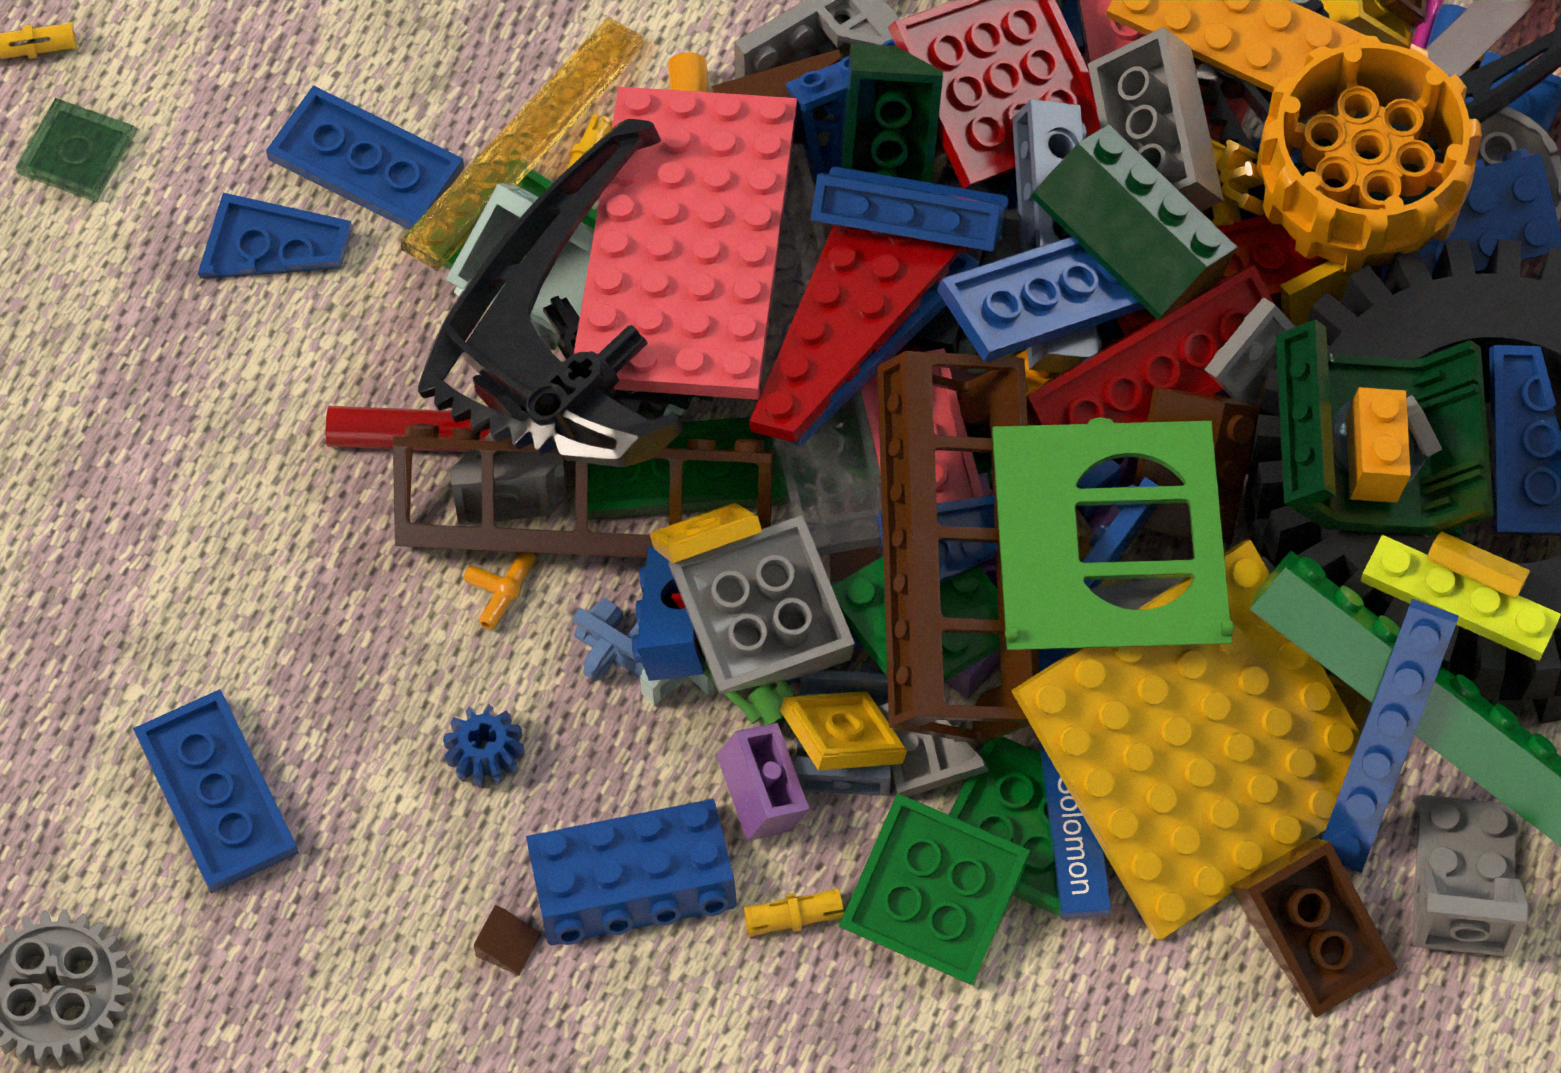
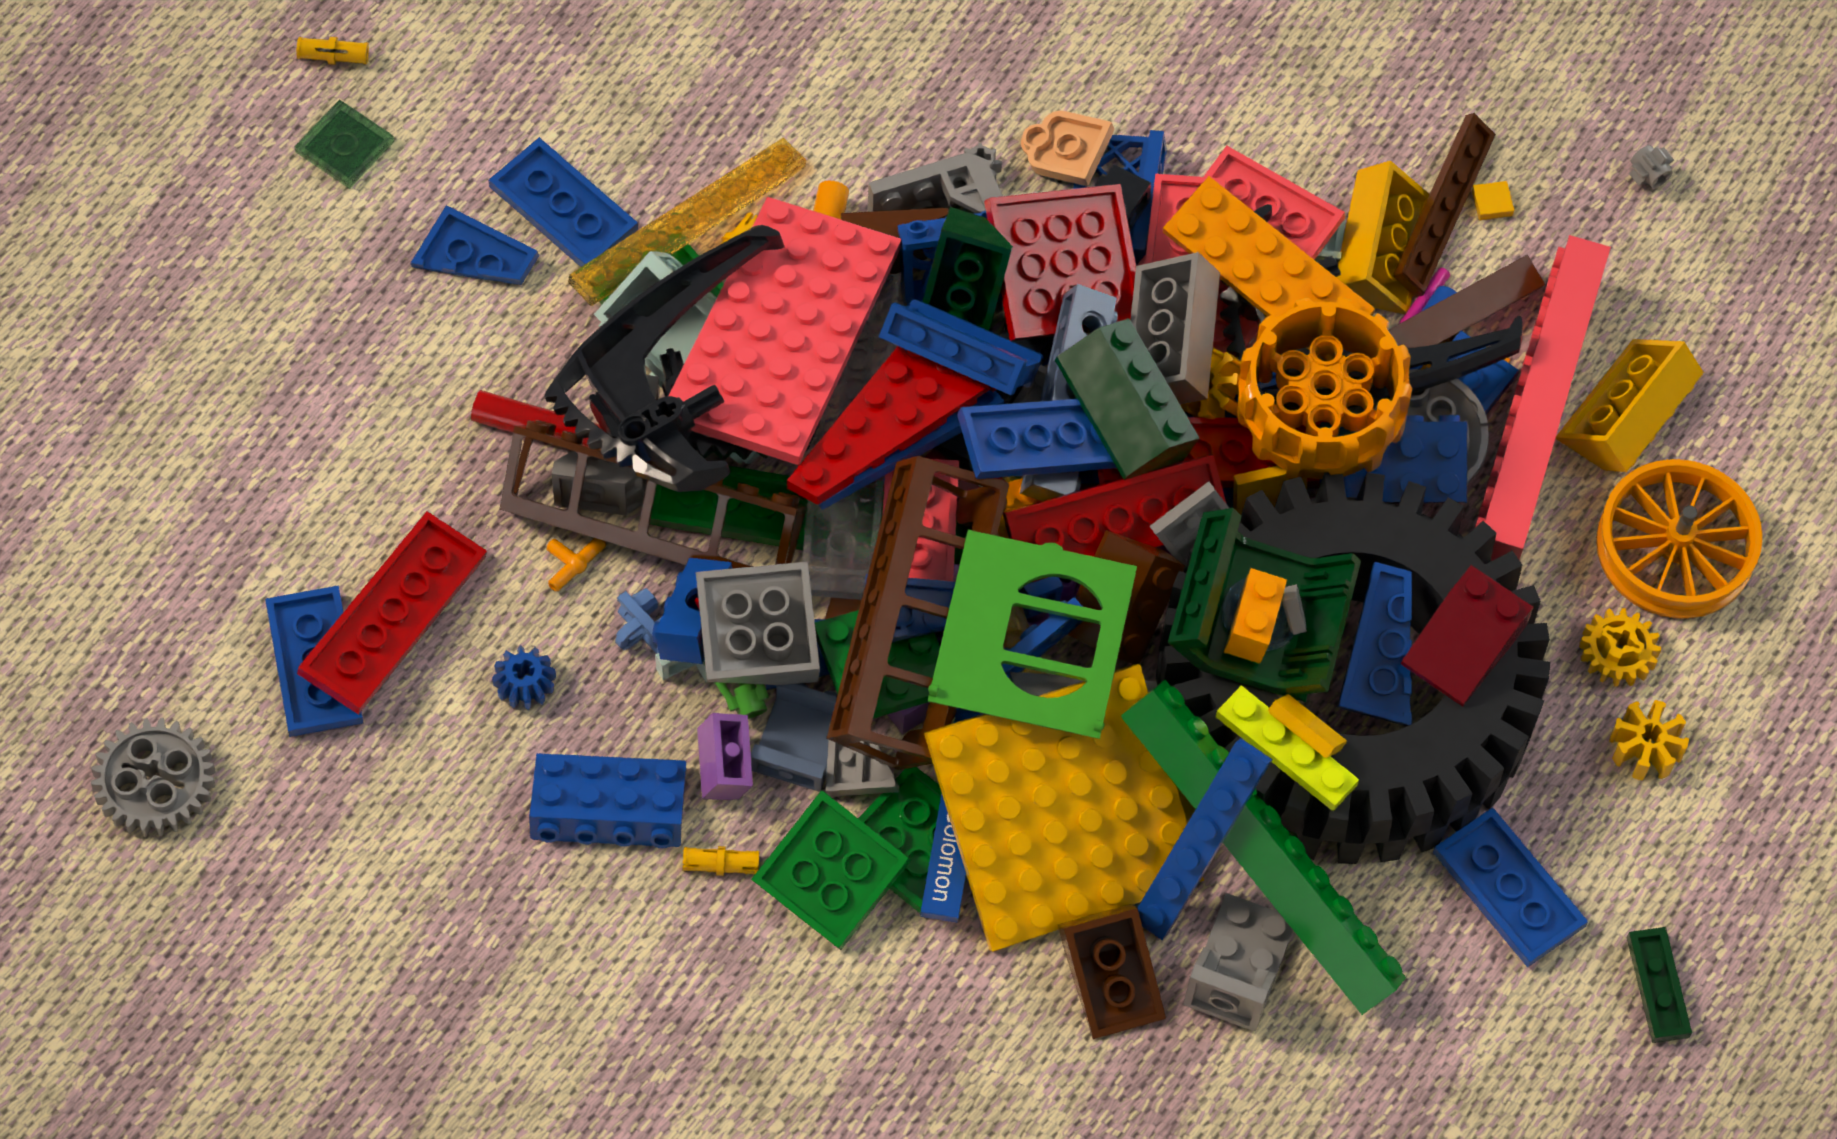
camera: 10 degrees right, 0 degrees up
(297, 707) = (392, 612): none -> red plate
(506, 941) = (499, 827): reddish brown slope -> none
(705, 532) = (731, 556): yellow tile -> none
(843, 730) = (795, 733): yellow tile -> none

